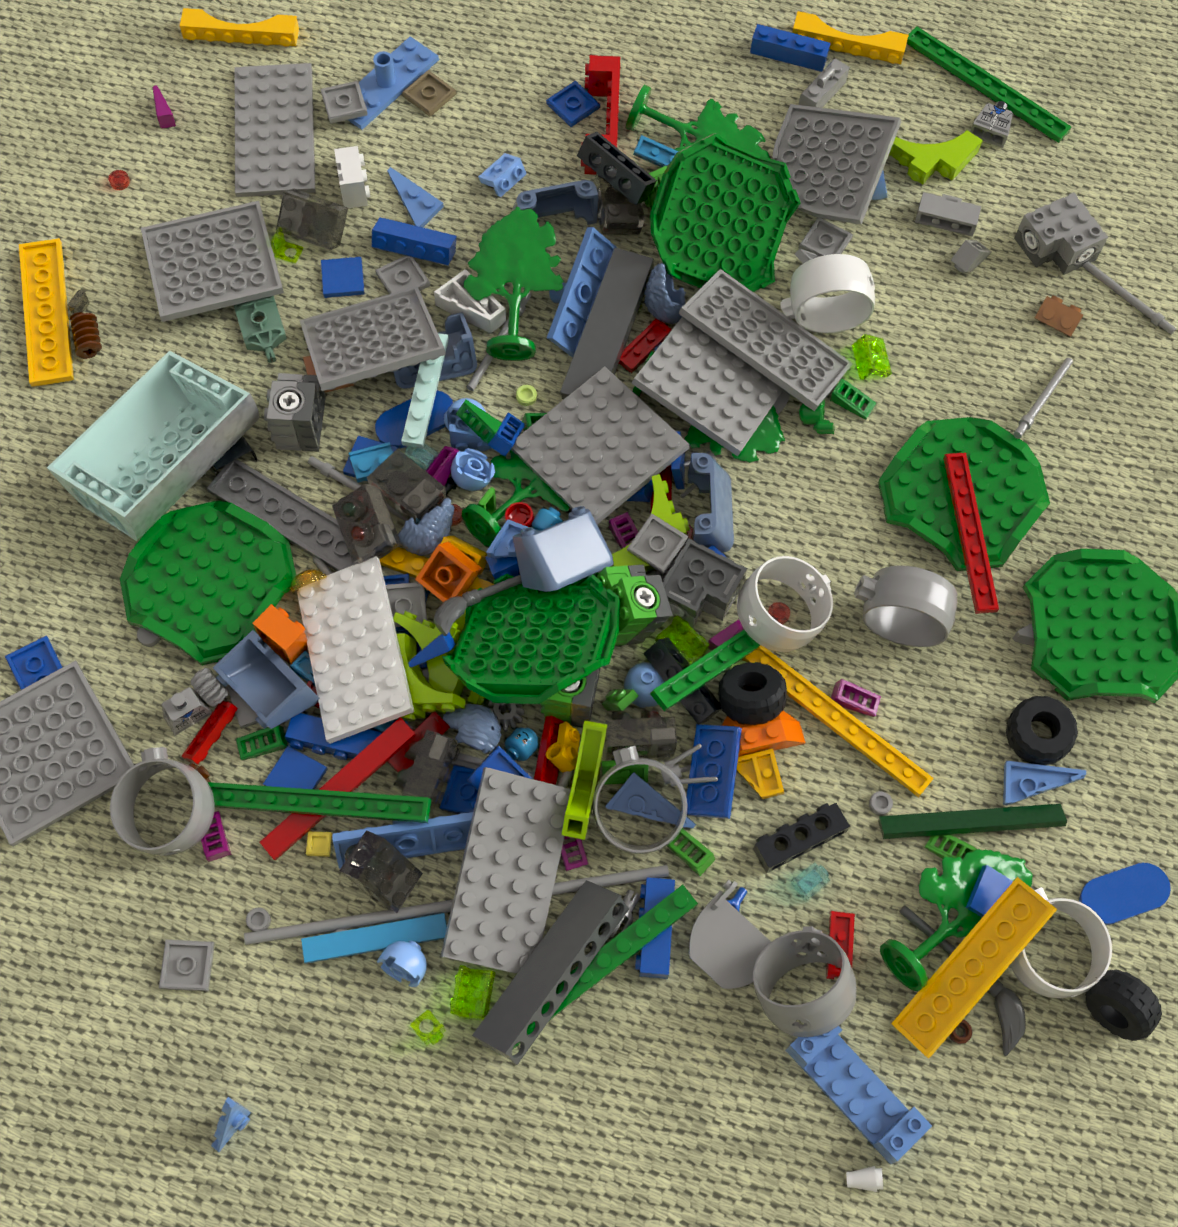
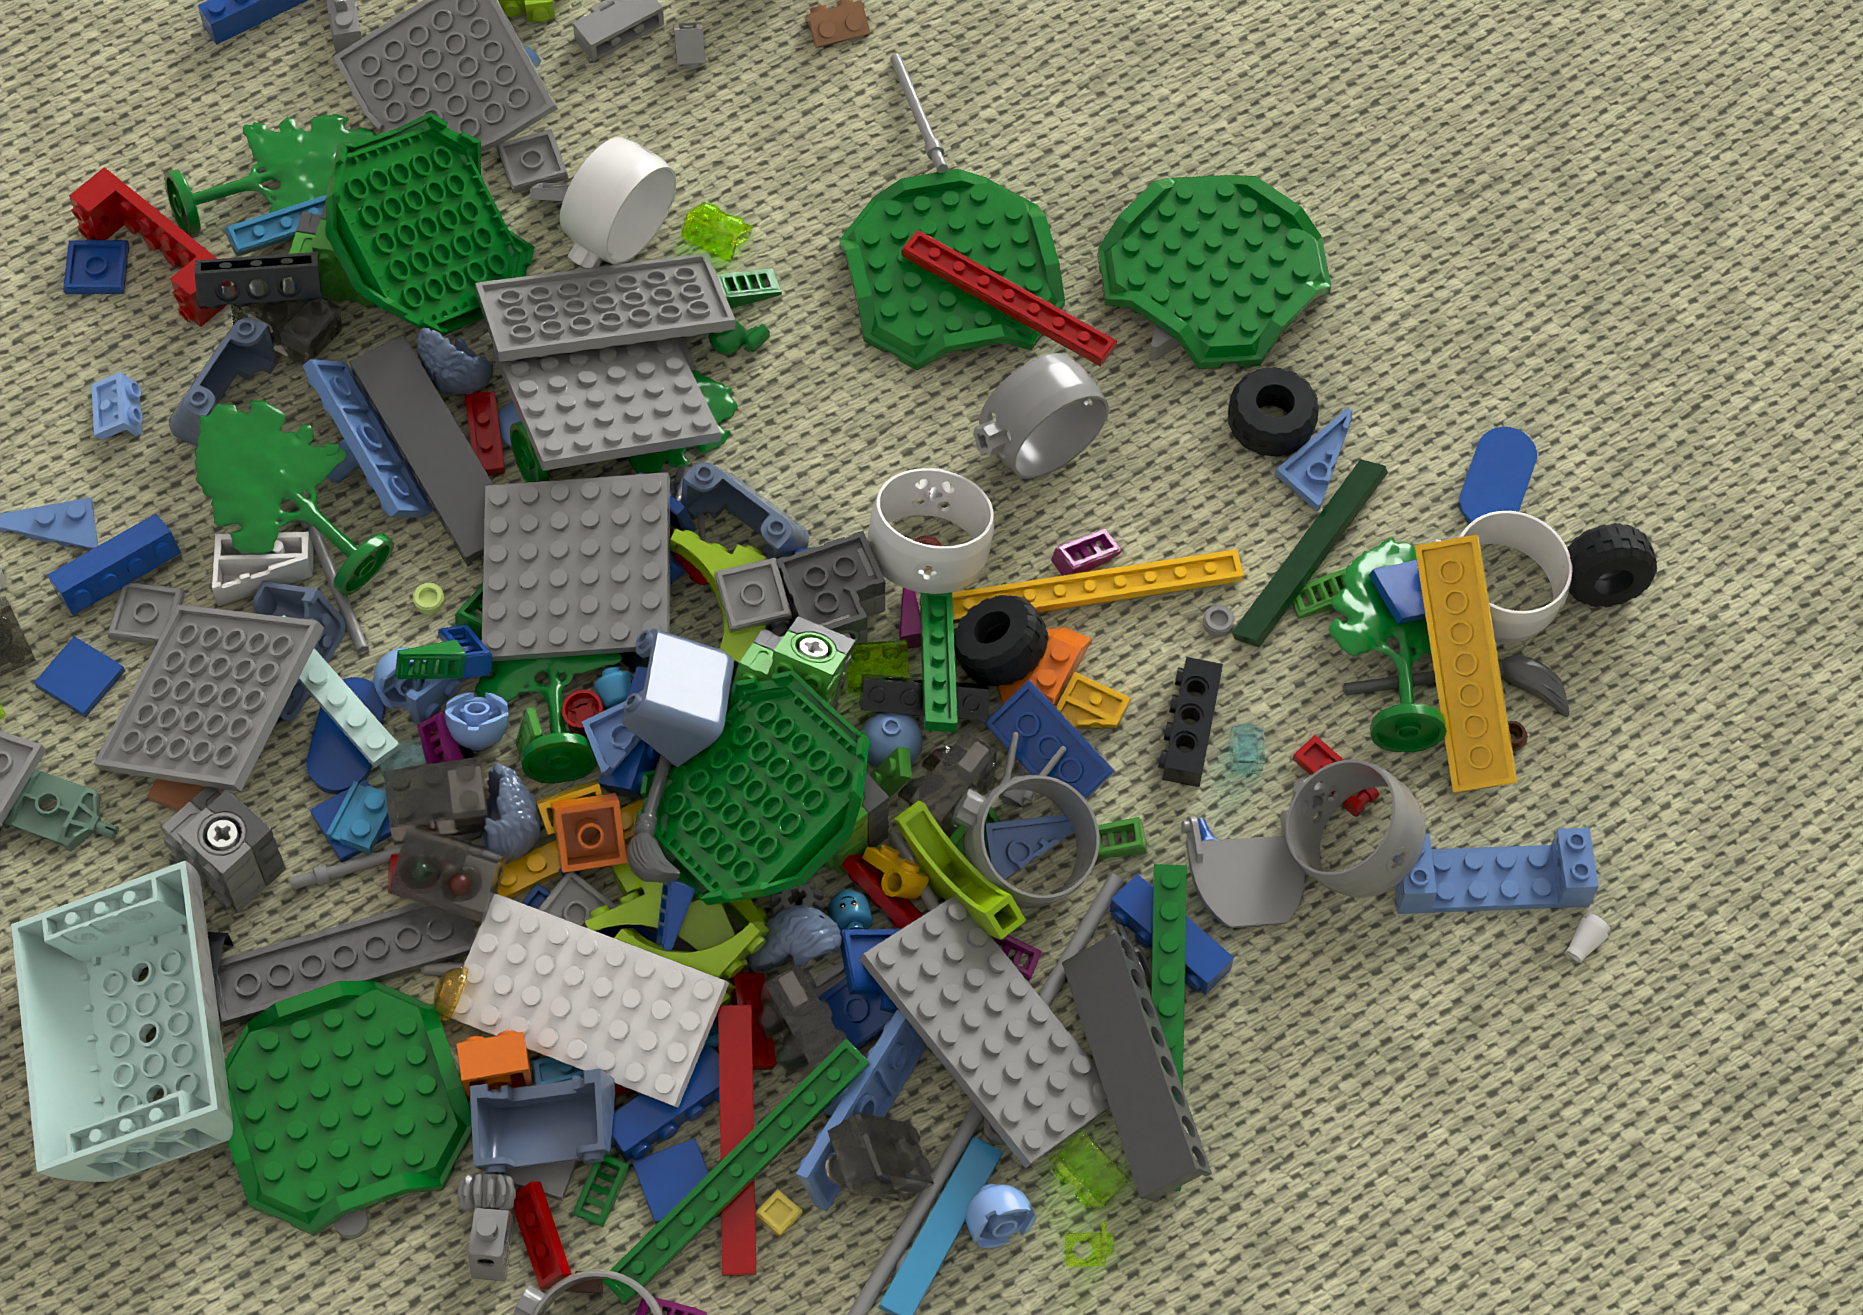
camera: 50 degrees left, 5 degrees down
(619, 521) = (694, 615): magenta slope -> none

